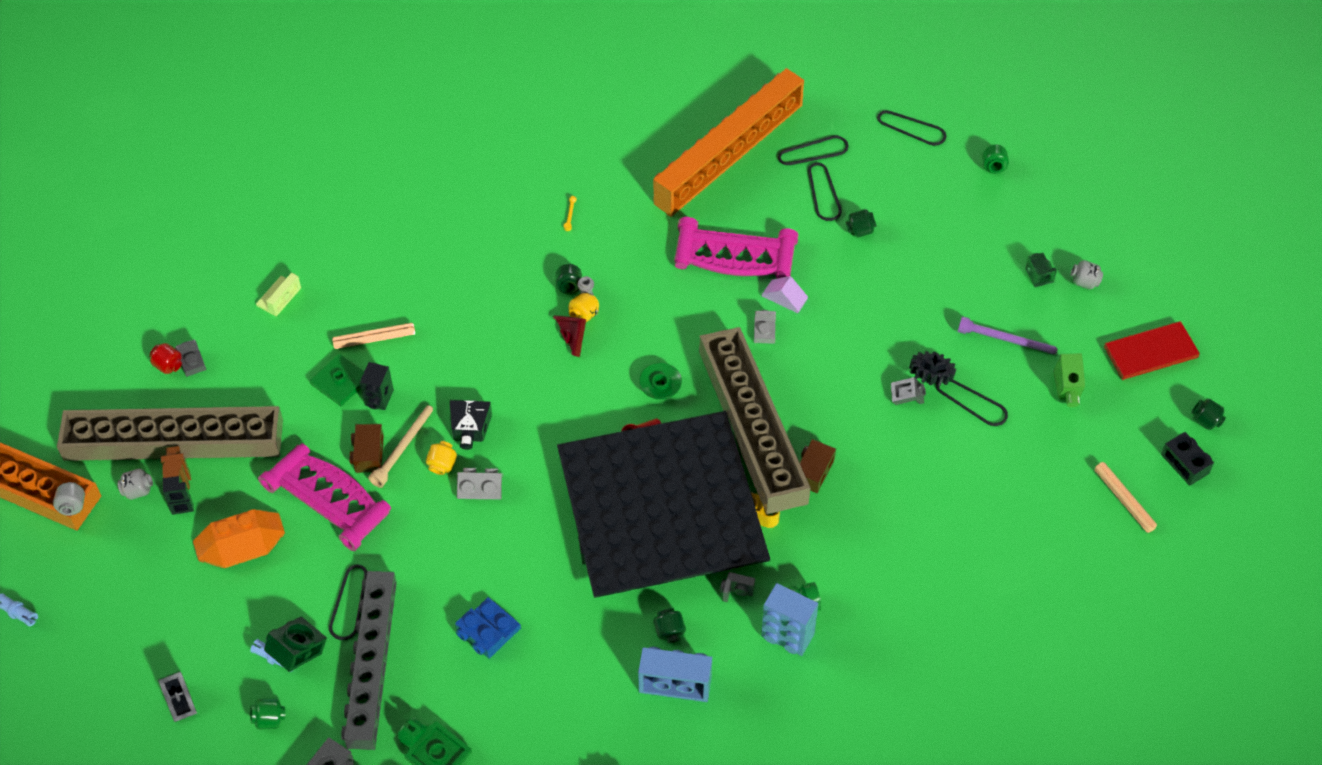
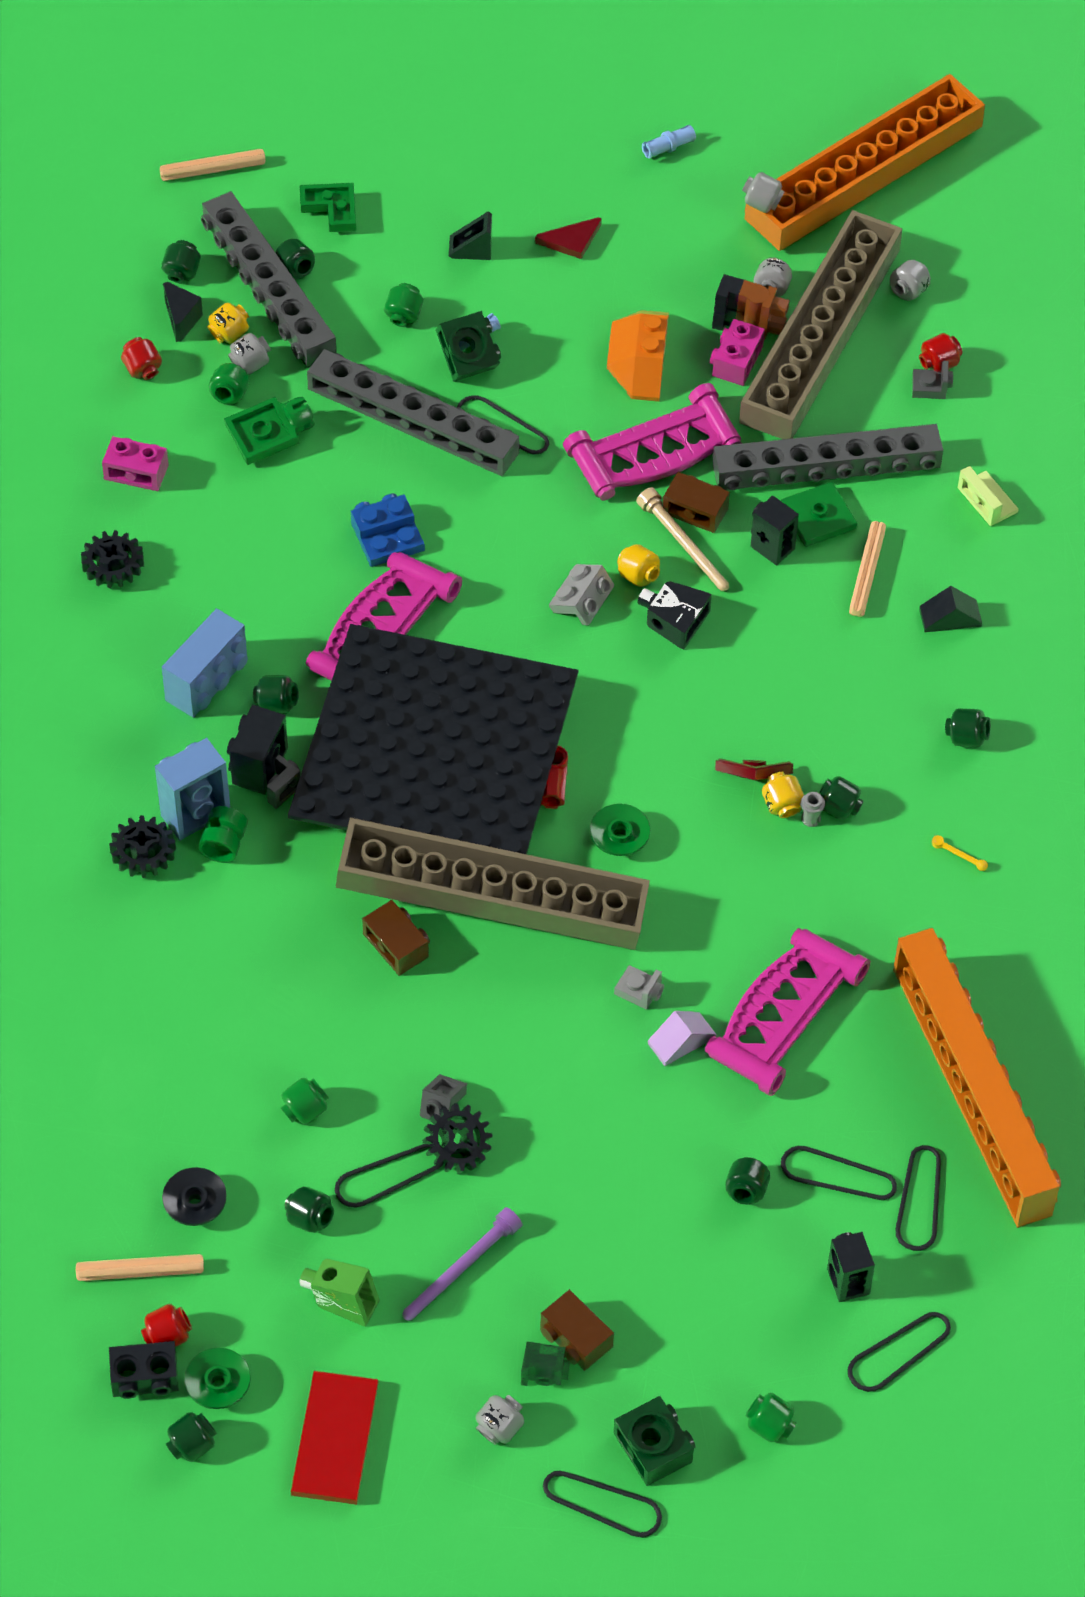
camera: 115 degrees right, 0 degrees up
(101, 399) = (911, 279): none -> light grey head
(144, 633) = (572, 238): none -> dark red tile
(216, 477) = (737, 352): none -> dark pink brick
(324, 444) = (827, 457): none -> dark grey brick
(389, 280) = (950, 611): none -> black slope
(477, 235) = (968, 727): none -> dark green head
(525, 577) = (424, 585): none -> dark pink piece
(727, 605) = (256, 746): none -> black brick
(838, 646) = (142, 846): none -> black gear
(887, 151) = (850, 1266): none -> black brick
(960, 460) = (304, 1101): none -> green head
(1008, 263) = (577, 1329): none -> reddish brown brick
(1029, 423) = (309, 1209): none -> dark green head
(1045, 203) = (656, 1422): none -> dark green brick
(1063, 479) = (190, 1185): none -> black dish
(1083, 218) = (595, 1516): none -> black piece
(1155, 459) = (167, 1325): none -> red head
(1165, 411) = (217, 1365): none -> green dish

